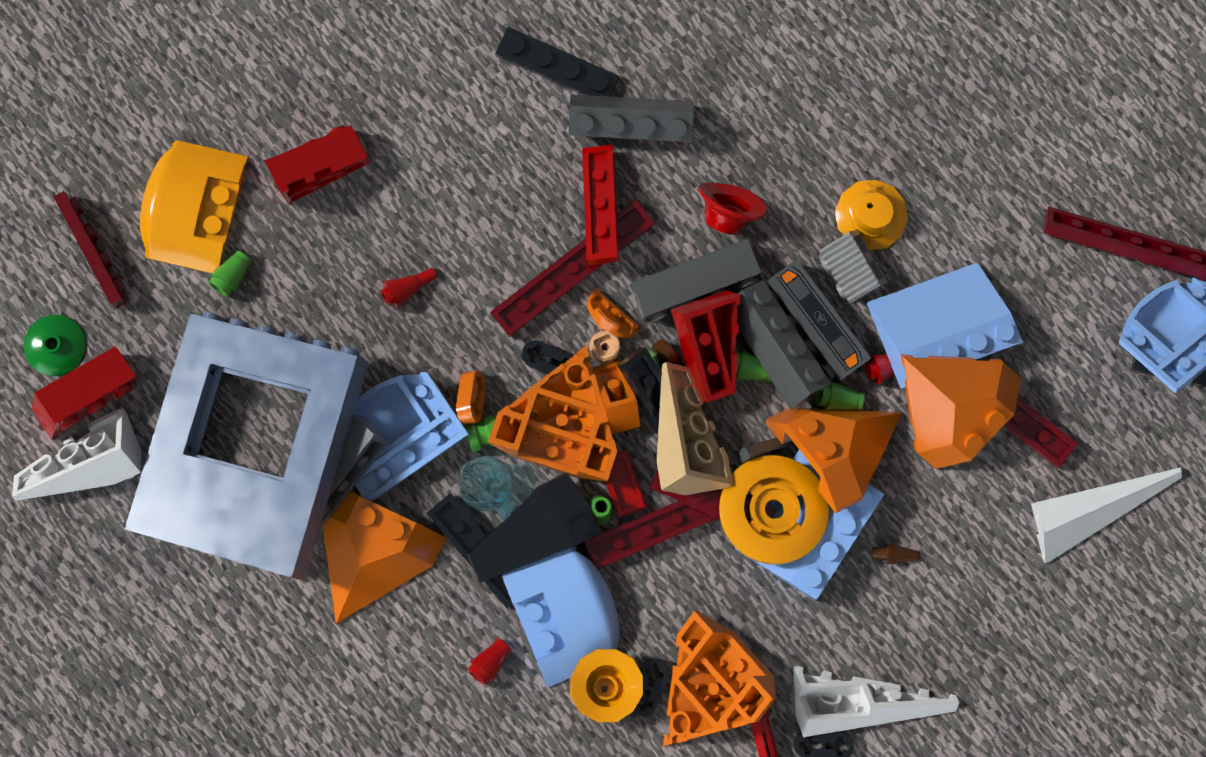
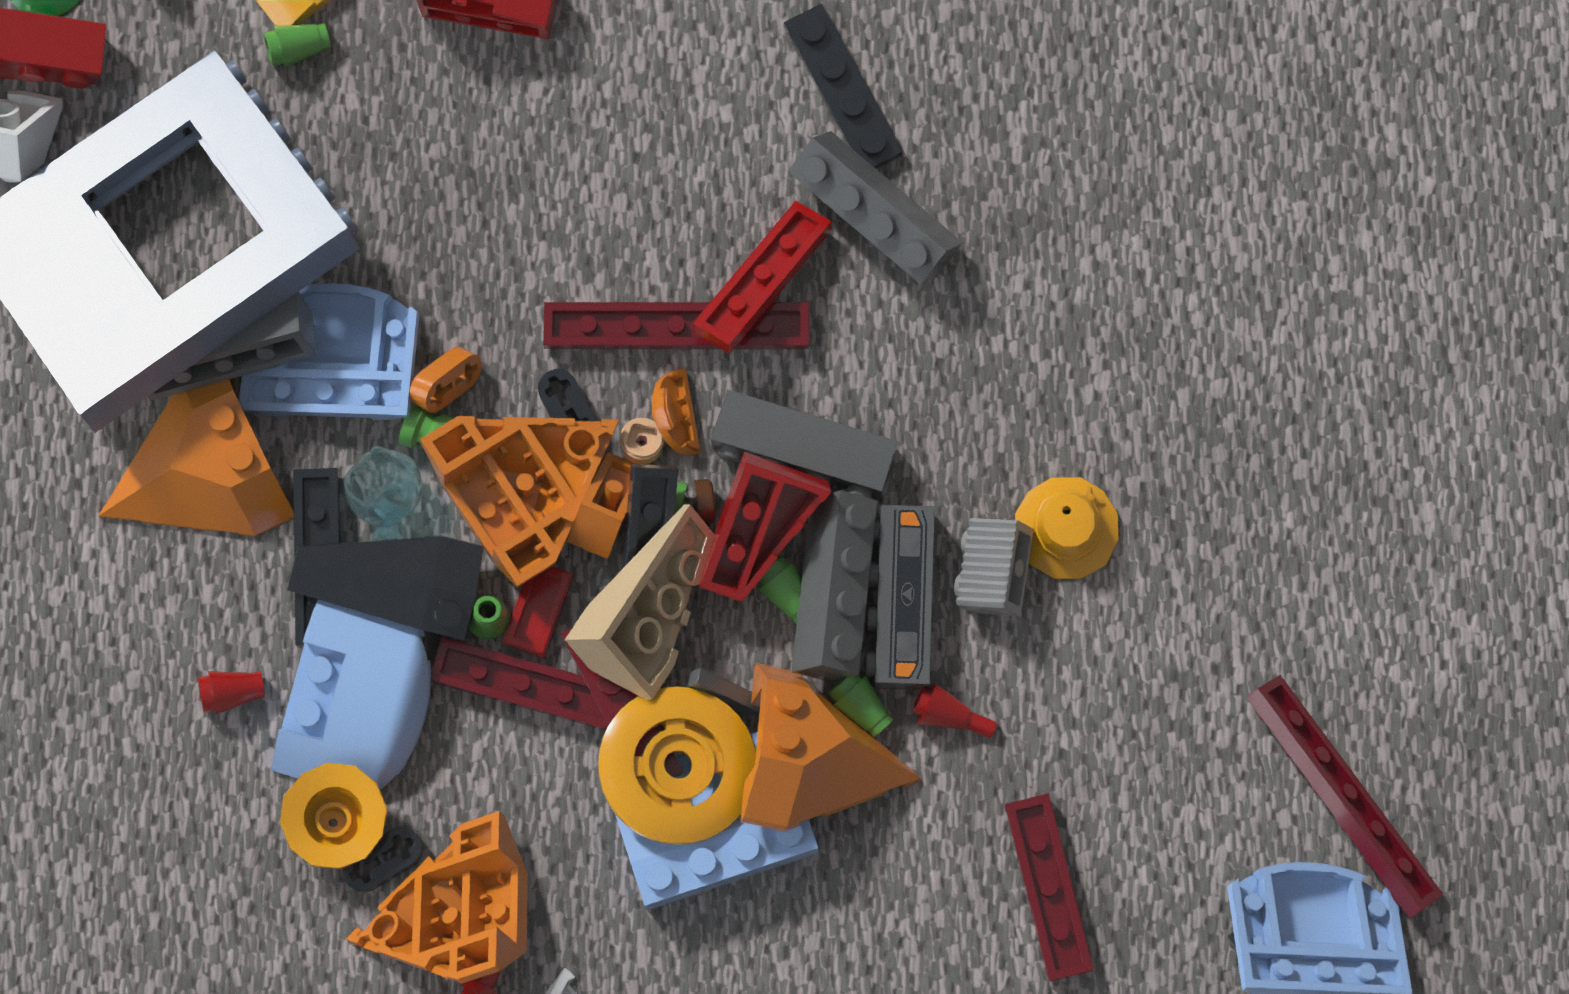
camera: 50 degrees right, 5 degrees down
(401, 289) = (469, 203): red cone -> none
(730, 207) = (907, 390): red hat -> none
(895, 554) = (782, 931): reddish brown bar -> none
(944, 317) = (1044, 712): light blue slope -> none
(957, 405) = (984, 810): orange wedge -> none

